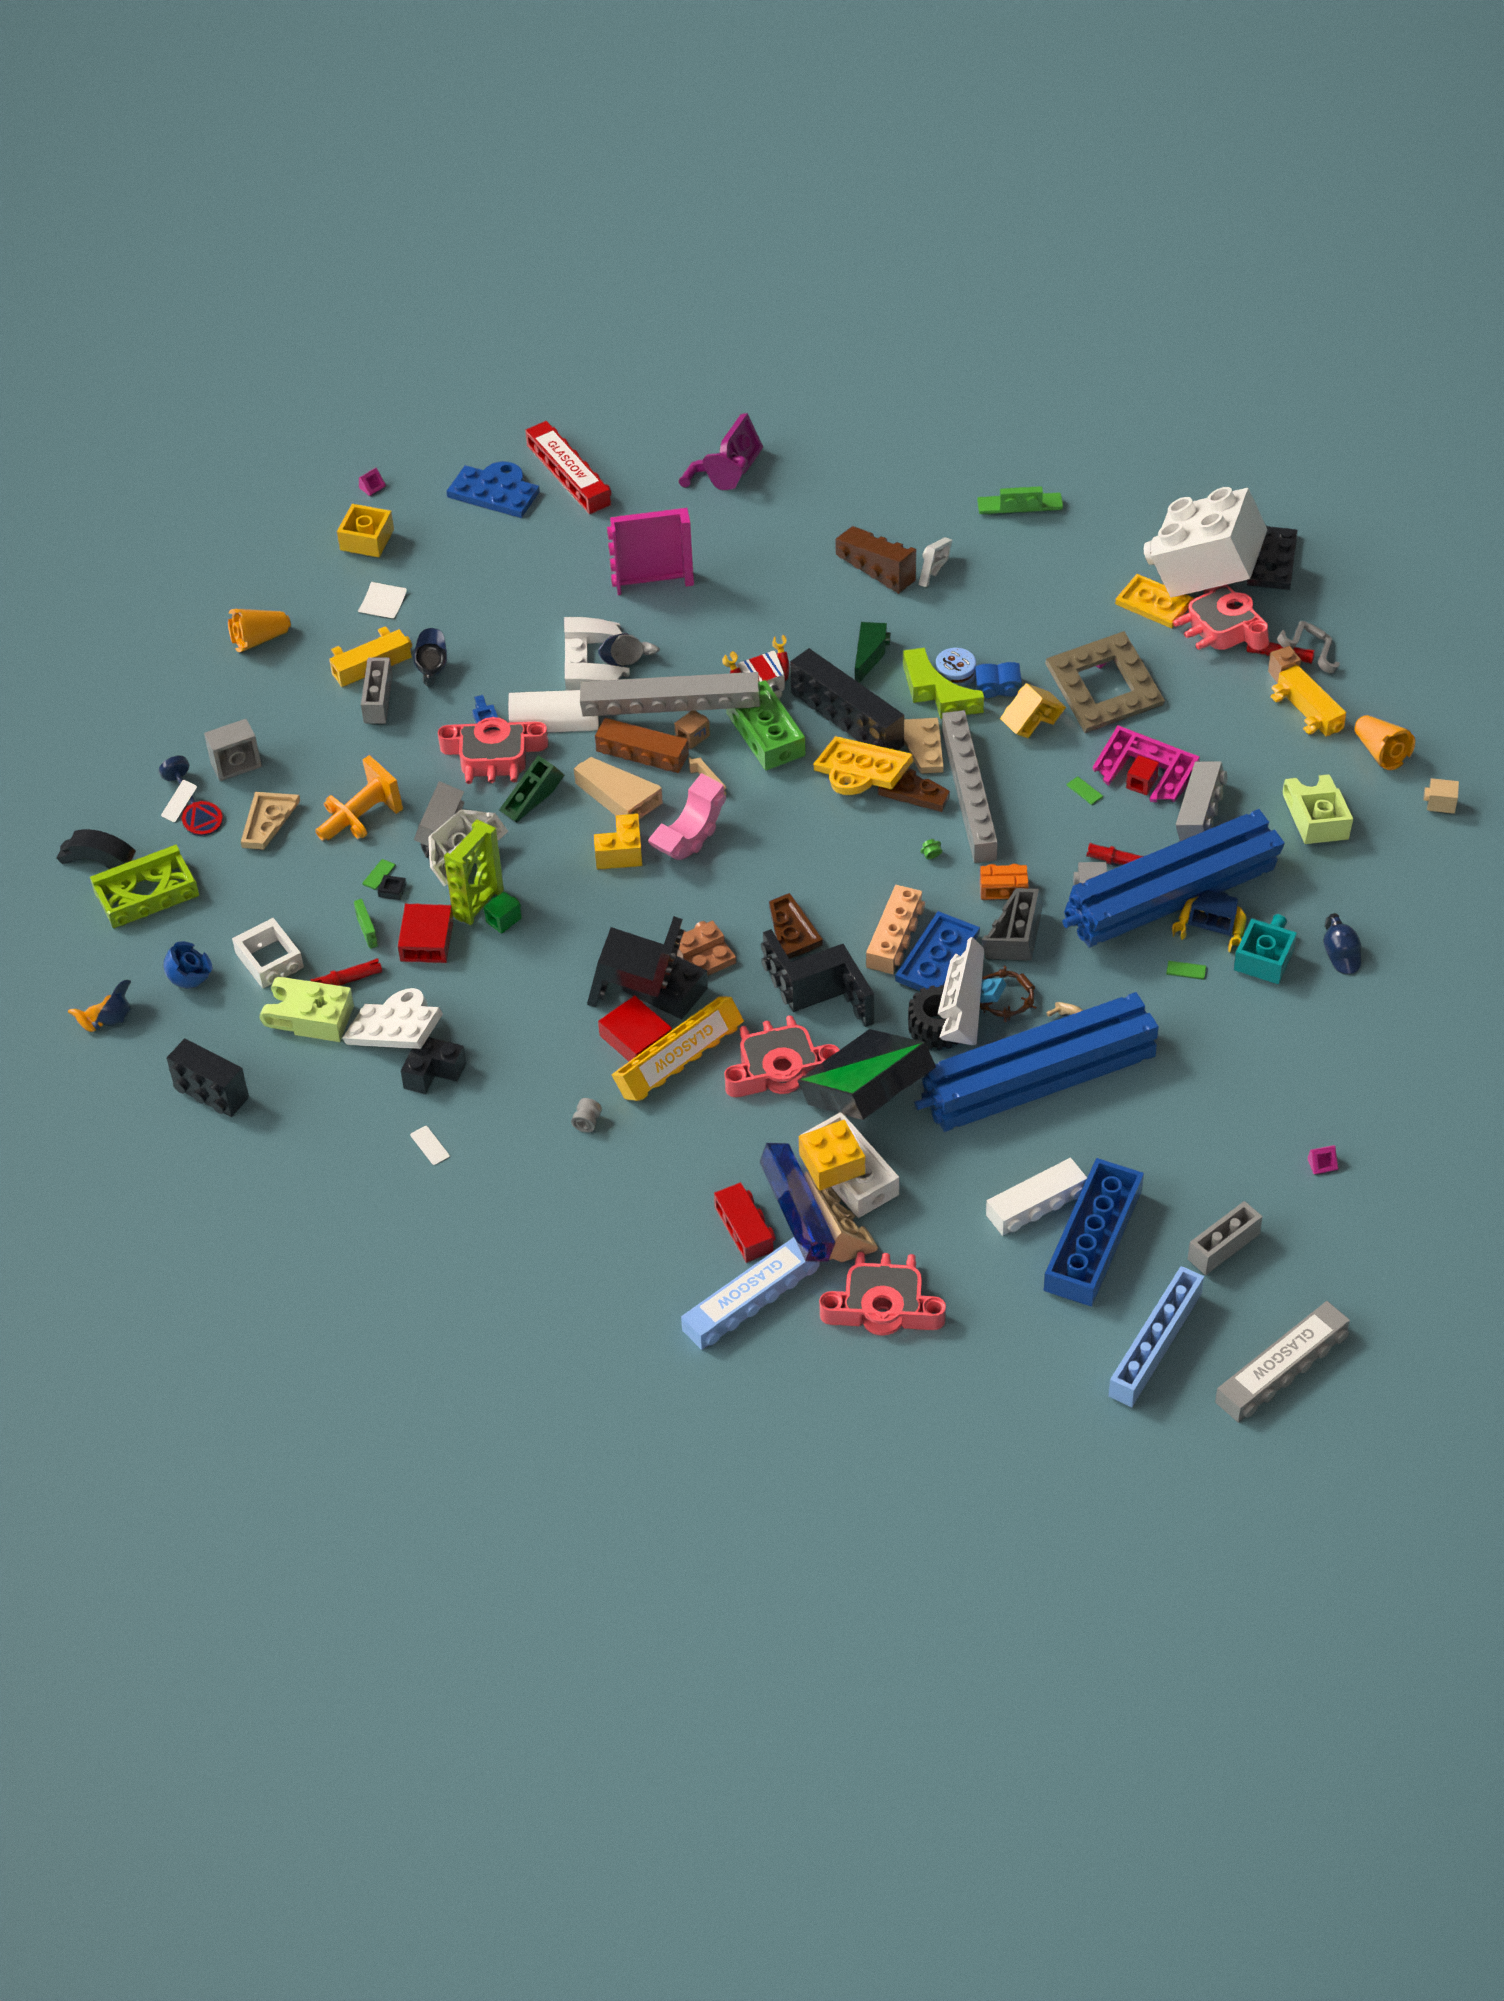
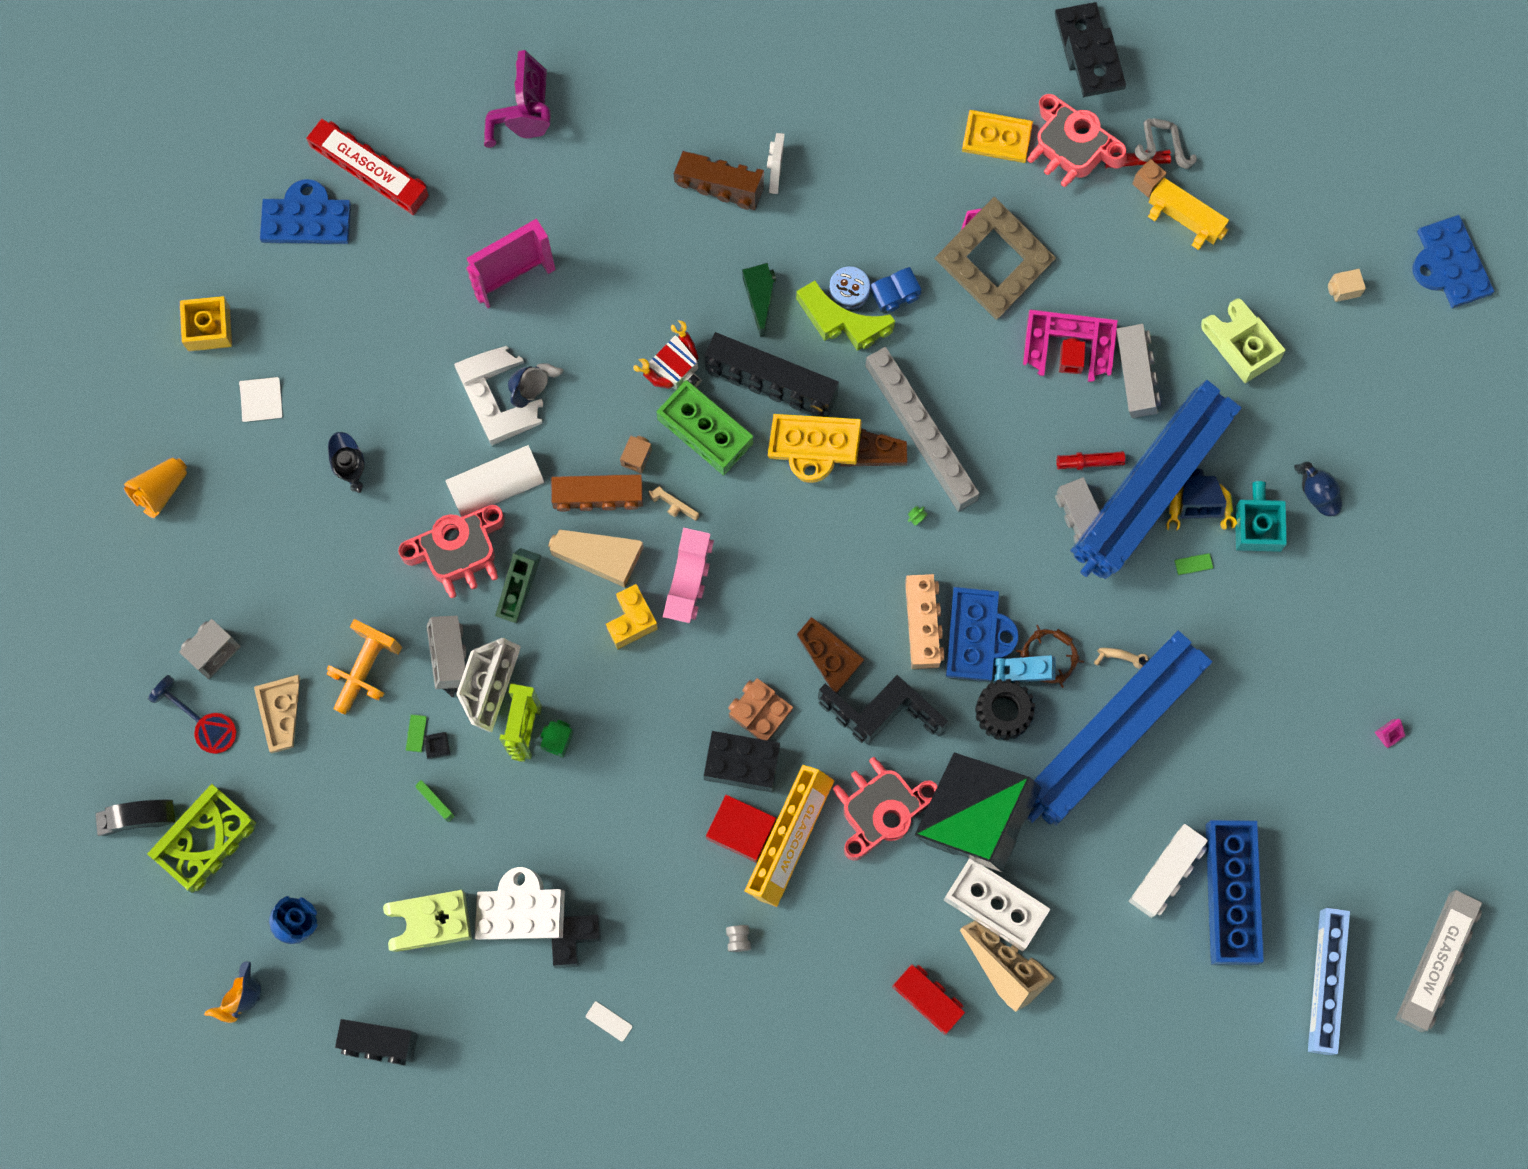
camera: 25 degrees left, 25 degrees up
(179, 801) = (183, 722): white sticker -> none
(259, 937) = (340, 858): white window -> none
(350, 974) = (444, 867): red pin -> none
(352, 664) = (286, 479): yellow brick -> none
(371, 482) = (179, 254): dark pink slope -> none
(376, 690) = (313, 521): light grey brick -> none
(425, 933) = (496, 789): red brick -> none
(482, 710) = (430, 509): blue plate -> none
(636, 962) = (720, 771): black bracket -> none
(670, 694) = (606, 434): light grey brick -> none
(746, 1294) = (966, 1070): light blue brick -> none
(797, 1202) = (972, 968): clear blue brick -> none
(832, 1155) = (987, 916): yellow brick -> none
(887, 1288) = (1080, 1018): coral piece -> none
(924, 743) = (857, 389): tan wing -> none
(962, 995) = (1024, 688): white wedge -> none
(1001, 881) = (997, 529): orange brick -> none
(1016, 929) = (1033, 582): dark grey wedge -> none
(1020, 500) = (824, 58): bright green bracket -> none
(1031, 708) = (945, 317): yellow brick -> none
(1084, 790) = (1023, 389): bright green window -> none
(1207, 541) = (1035, 67): white brick -> none
(1224, 1238) = (1345, 855): light grey brick -> none
(1385, 741) = (1271, 238): light orange cone -> none

